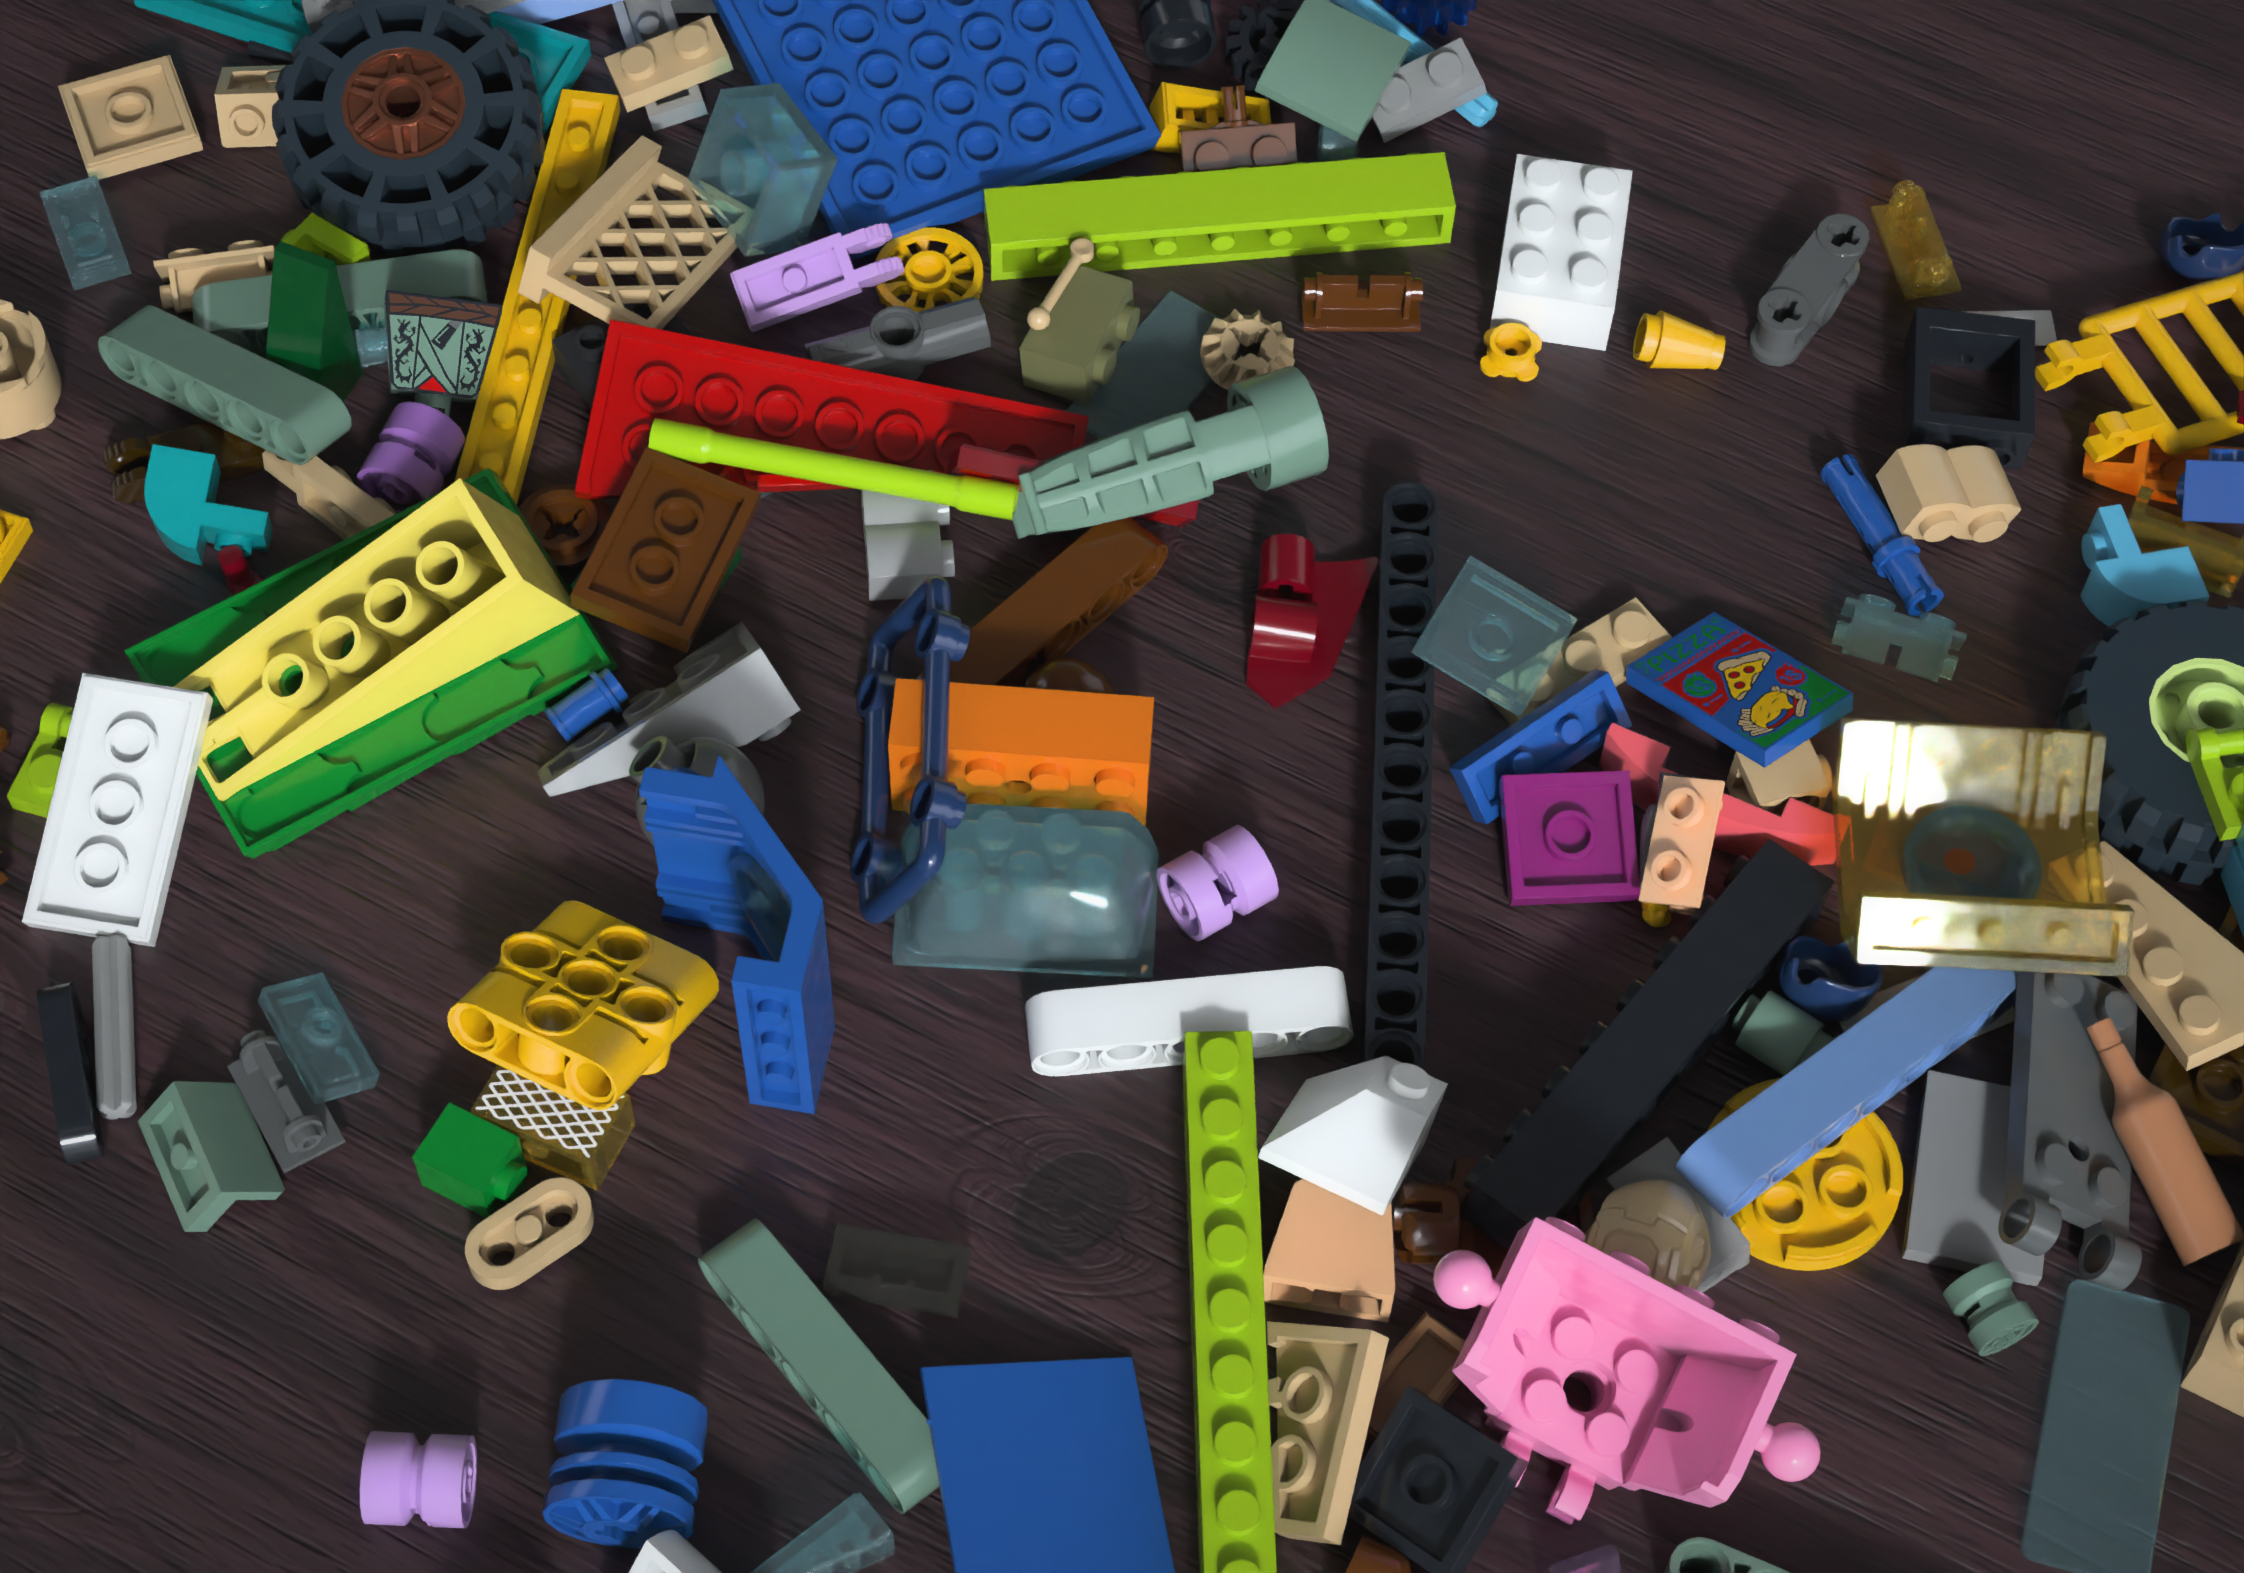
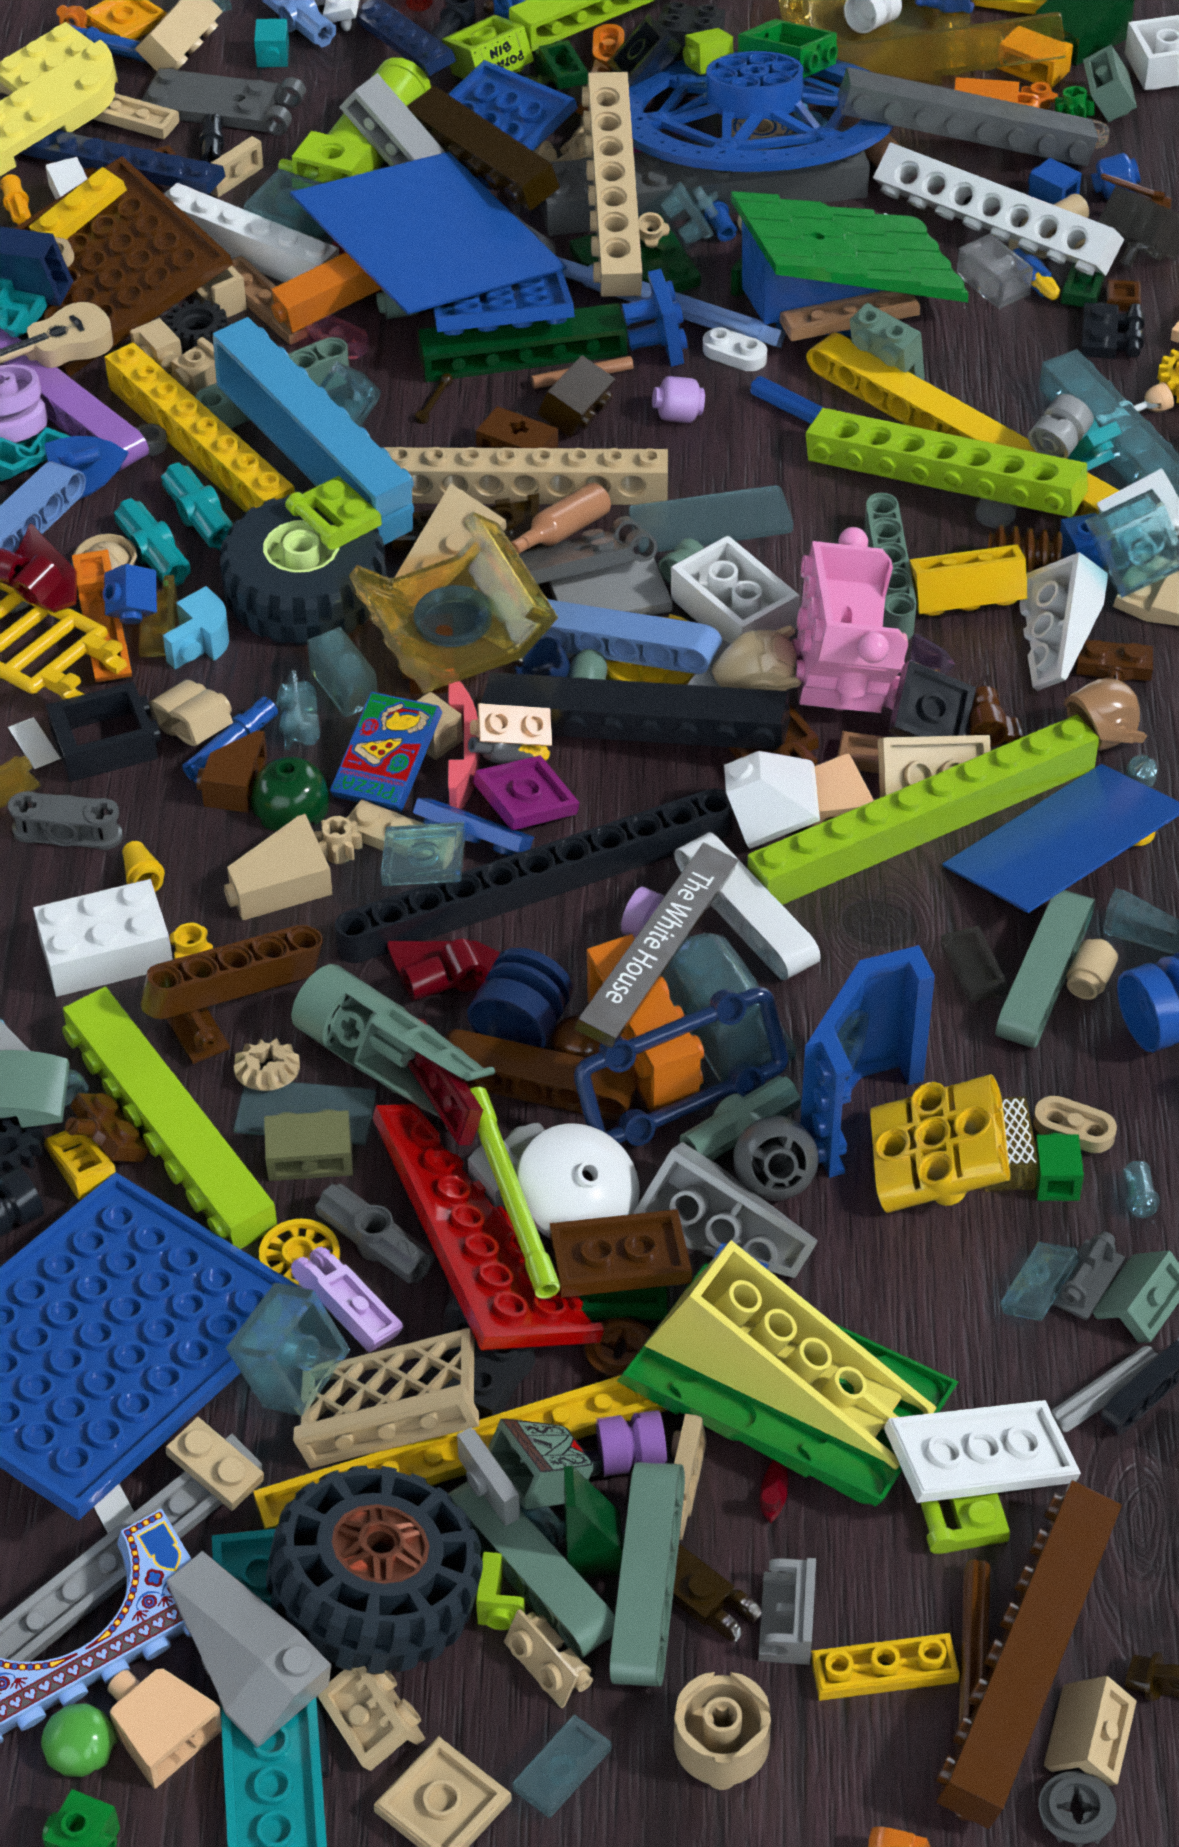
camera: 115 degrees left, 10 degrees down
(86, 521) = (787, 1611): none -> light grey hinge
(183, 509) = (746, 1536): teal brick -> none
(367, 1254) = (1142, 1198): none -> clear light blue pin
(443, 267) = (487, 1476): none -> light grey plate
(784, 1427) = (1091, 968): none -> tan brick
(811, 810) = (737, 1112): none -> sand green piece
(837, 590) = (554, 1179): none -> white dish
(1081, 252) = (256, 1150): tan hinge -> none
(1111, 786) = (656, 946): none -> tile
(1151, 628) = (521, 998): none -> dark blue wheel
(1402, 309) = (230, 971): none -> reddish brown beam
(1582, 490) = (279, 872): none -> tan slope
(1603, 574) = (339, 839): none -> tan gear
(1729, 561) = (287, 790): none -> dark green cylinder
(1801, 508) = (231, 772): none -> reddish brown slope
(1864, 1322) = (732, 591): none -> white brick
(1953, 696) = (341, 670): none -> clear light blue brick

